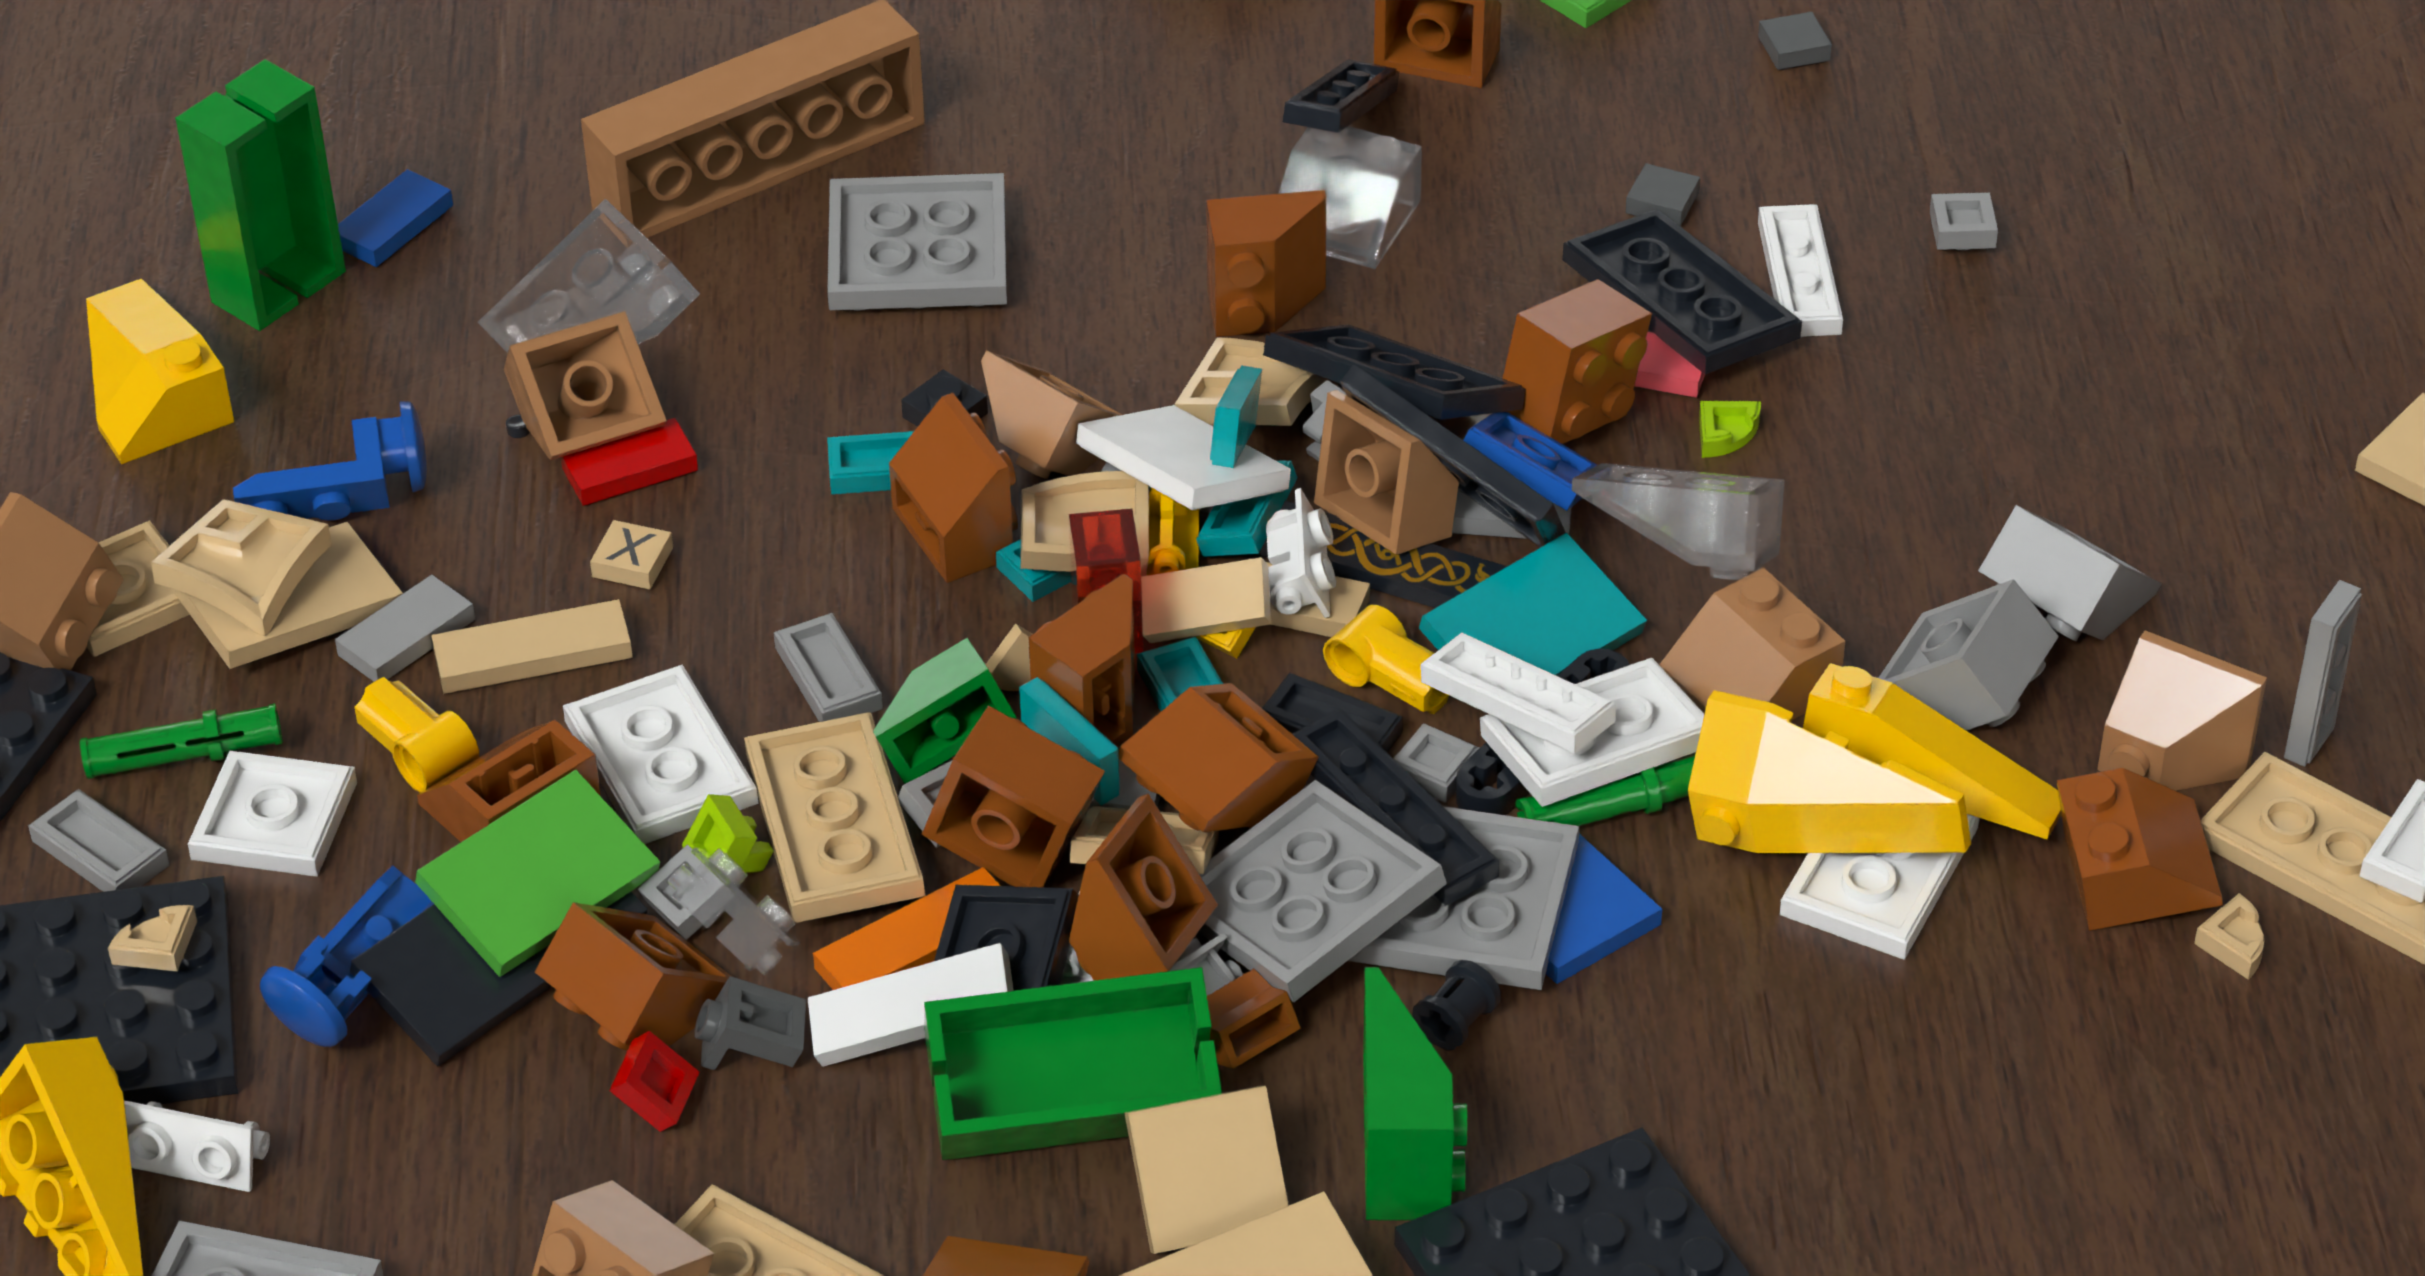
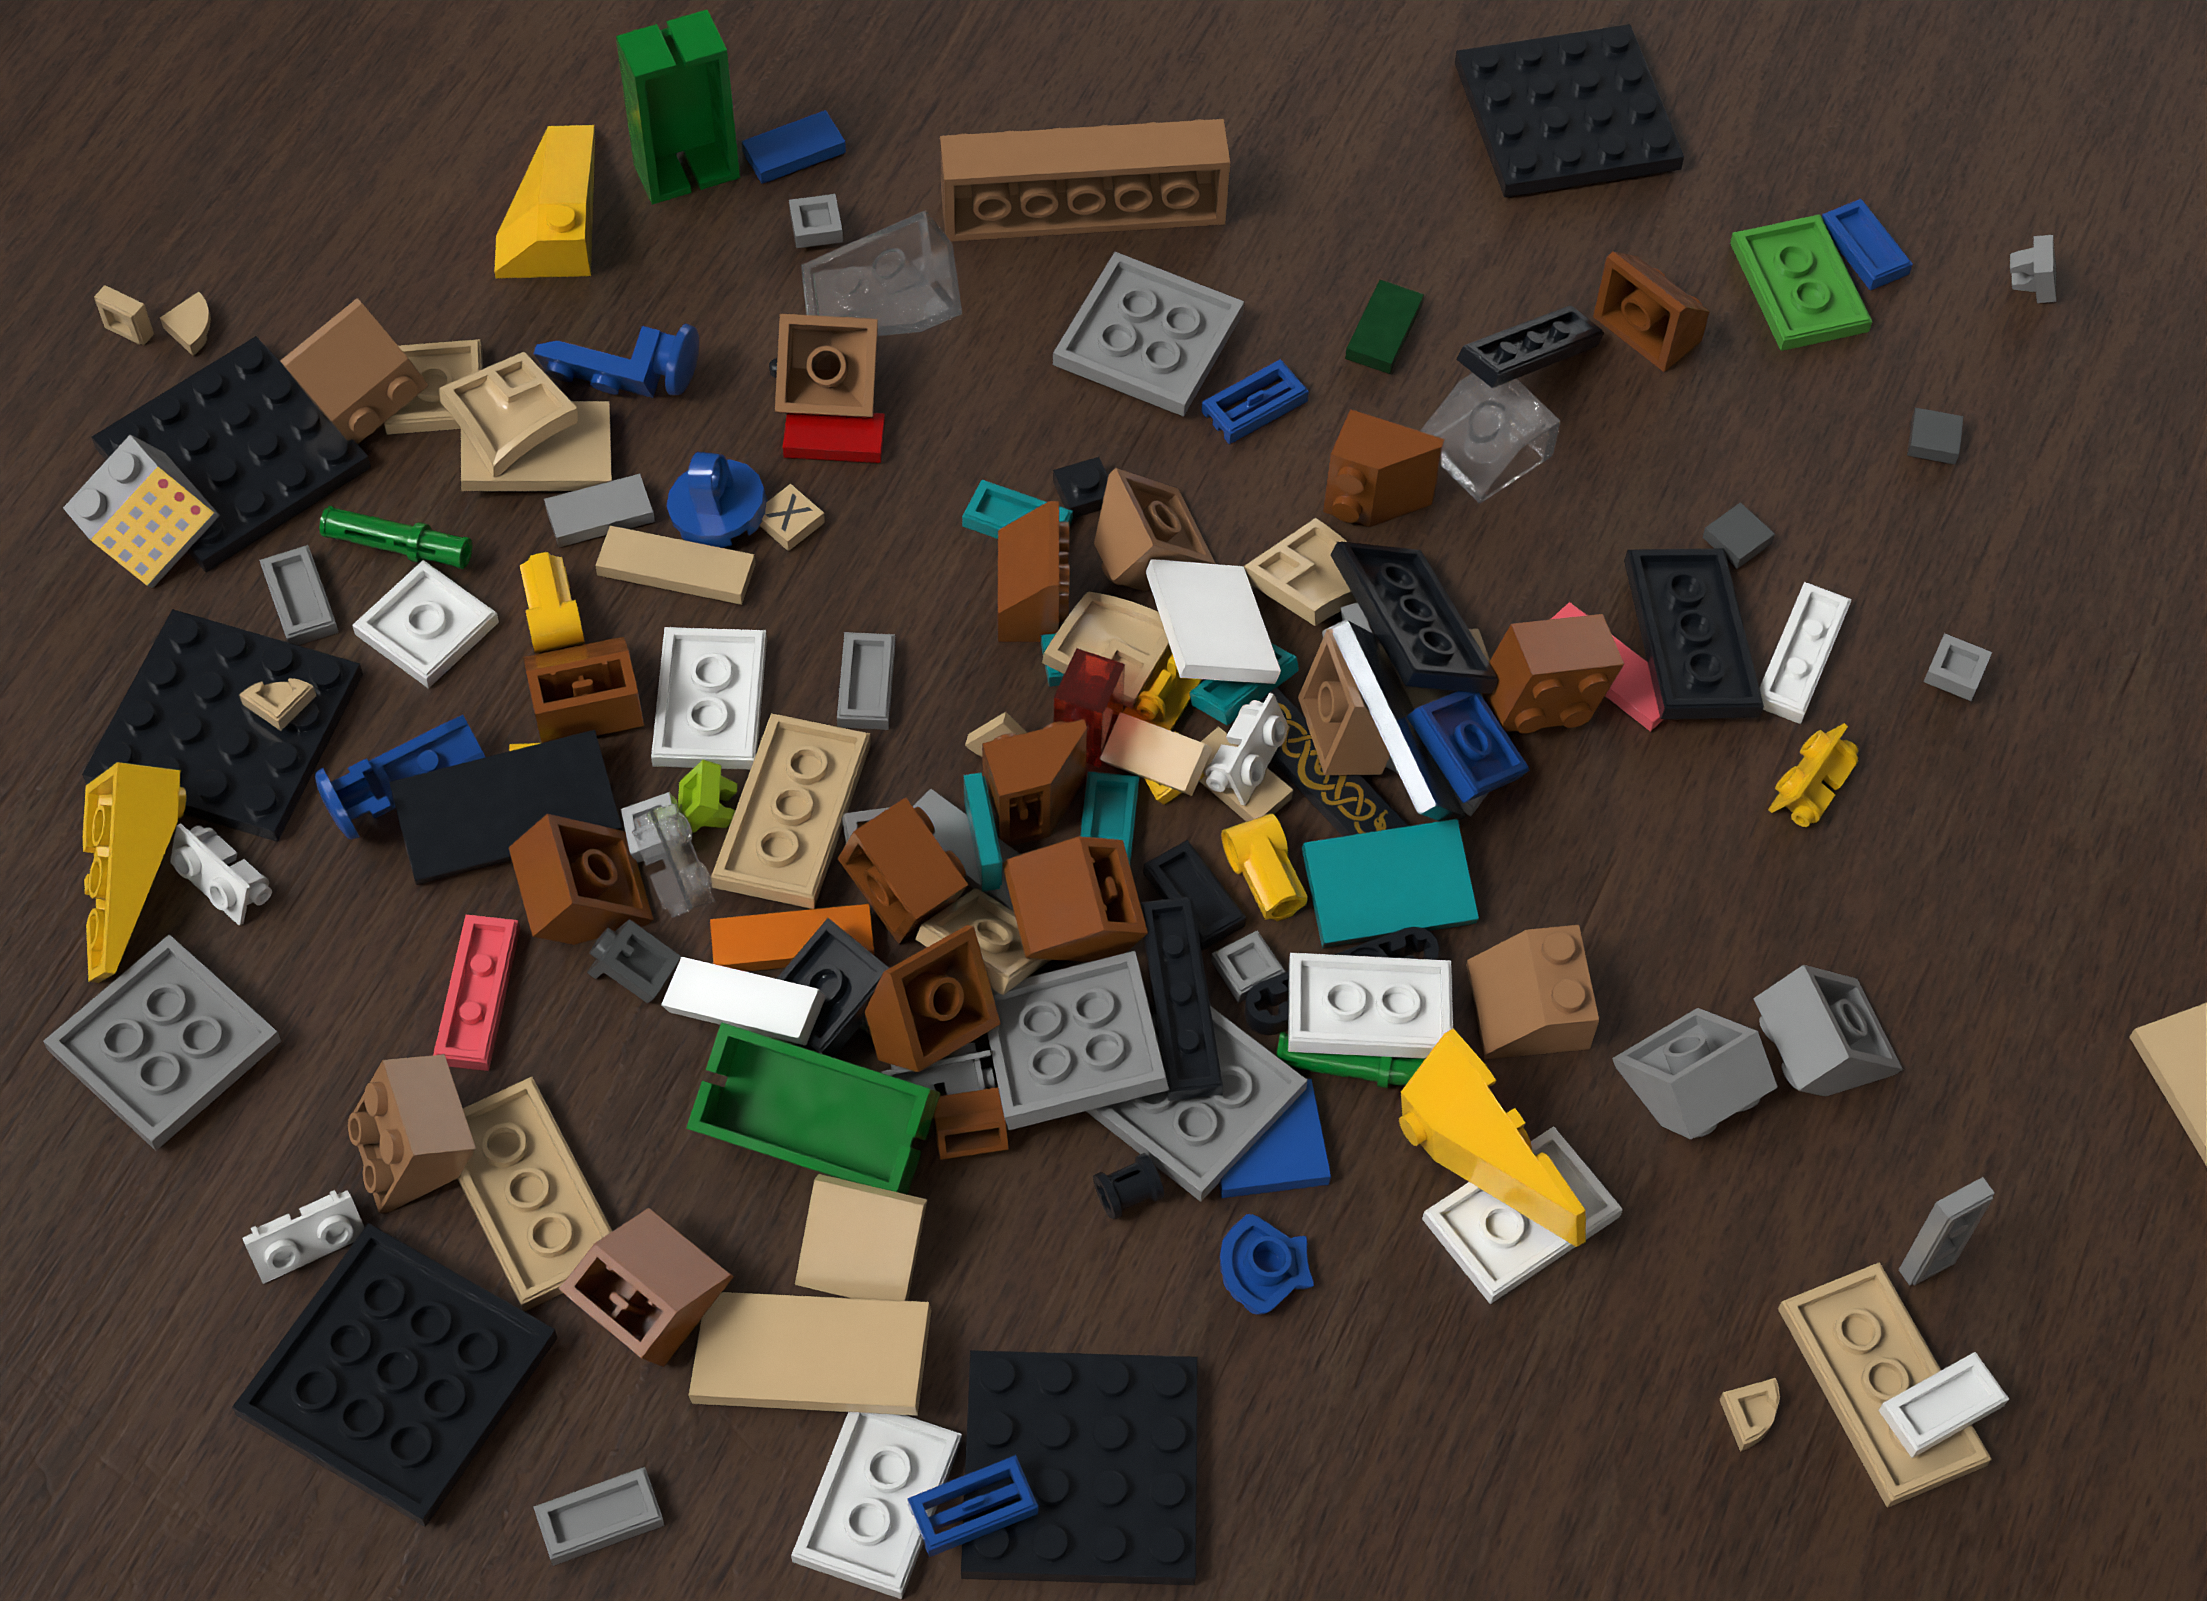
camera: 25 degrees right, 15 degrees up
(469, 272) = (815, 221): none -> light grey plate
(526, 869) = (552, 766): bright green tile -> none
(539, 563) = (716, 500): none -> blue tile
(582, 1122) = (477, 991): none -> coral tile
(654, 1081) = (540, 974): red plate -> none
(938, 710) = (914, 760): green slope -> none
(1084, 265) = (1260, 407): none -> blue tile
(1165, 148) = (1384, 326): none -> dark green tile
(1235, 416) = (1263, 609): teal tile -> none
(1406, 1112) = (1009, 1284): green slope -> none
(1518, 693) = (1321, 951): white plate -> none
(1648, 1018) = (1262, 1264): none -> blue animal
(1698, 516) = (1556, 846): clear slope -> none
(1727, 425) = (1654, 770): lime tile -> none
(1893, 365) = (1802, 787): none -> yellow hinge
(1898, 727) = (1605, 1137): yellow wedge -> none
(2135, 848) = (1715, 1304): dark orange slope -> none
(2182, 716) = (1816, 1210): medium nougat slope -> none

